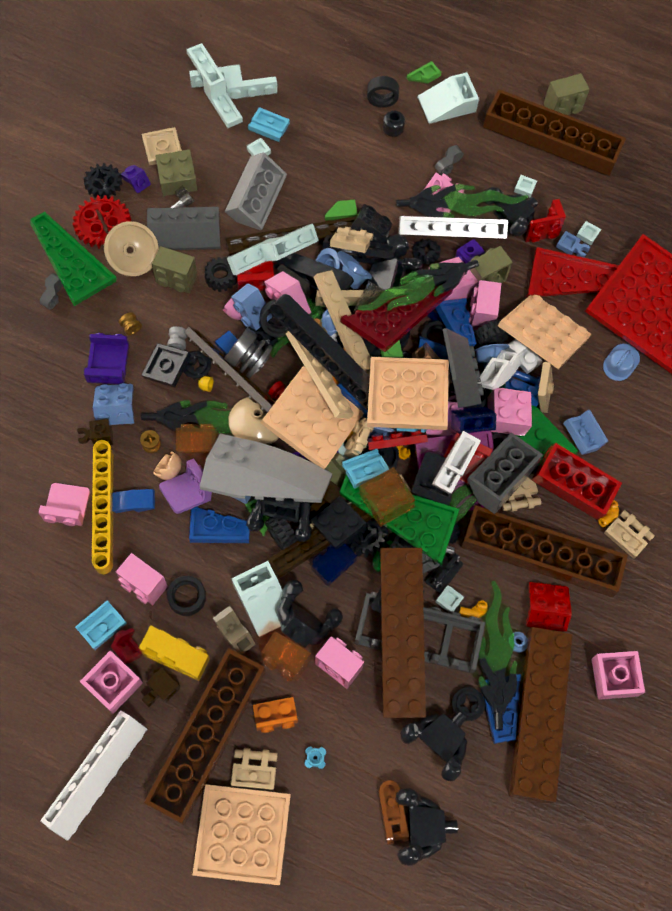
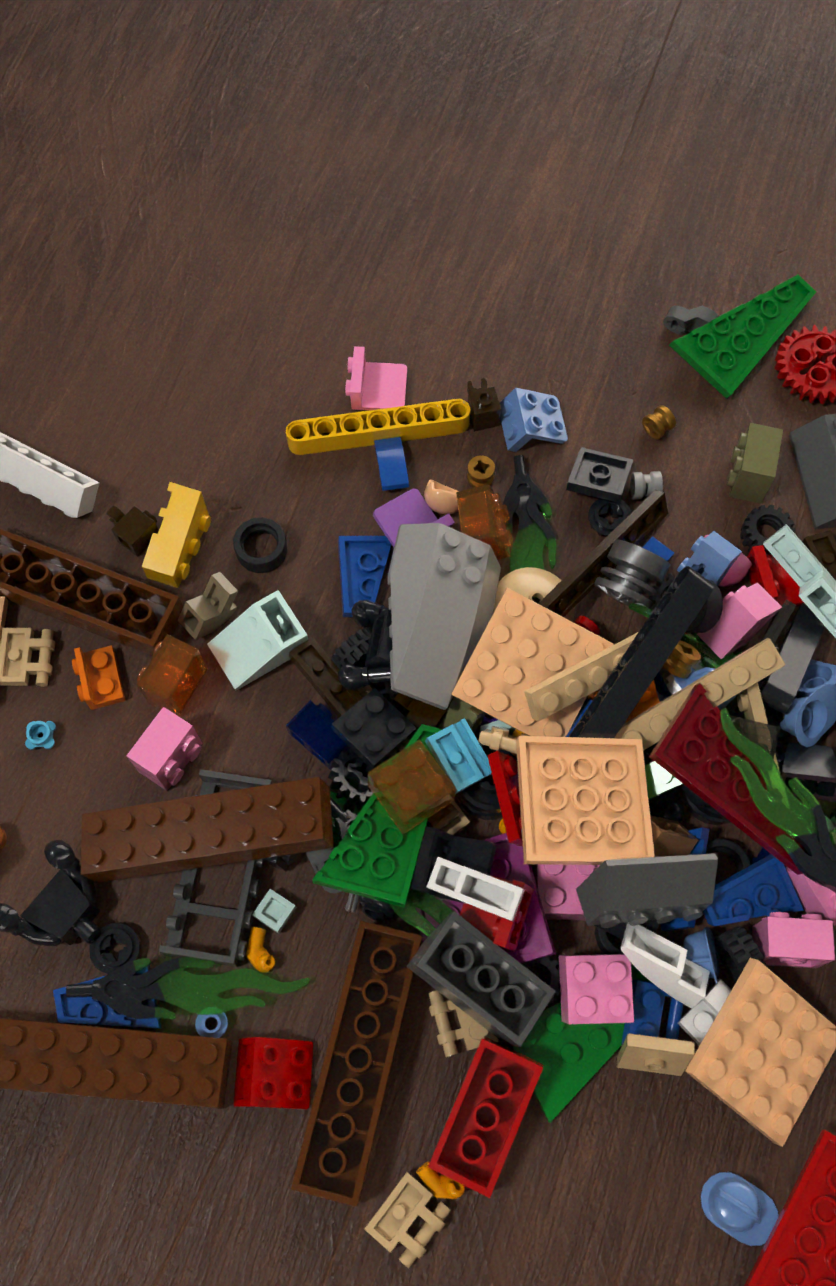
camera: 90 degrees right, 0 degrees up
(101, 625) = (215, 448): medium azure plate -> none
(107, 359) = (599, 403): dark purple panel -> none
(111, 682) = (136, 467): bright pink brick -> none
(126, 647) = (188, 475): dark red bracket -> none
(136, 237) = (775, 385): tan dish -> none
(141, 579) = (273, 481): bright pink brick -> none
(206, 383) = (582, 533): yellow hinge -> none
(301, 625) = (217, 691): black torso -> none
(445, 573) = (317, 902): black hinge -> none
(473, 420) = (563, 921): clear blue brick -> none
(586, 432) = (583, 1134): medium blue bracket -> none
(618, 675) = (156, 1192): bright pink brick -> none

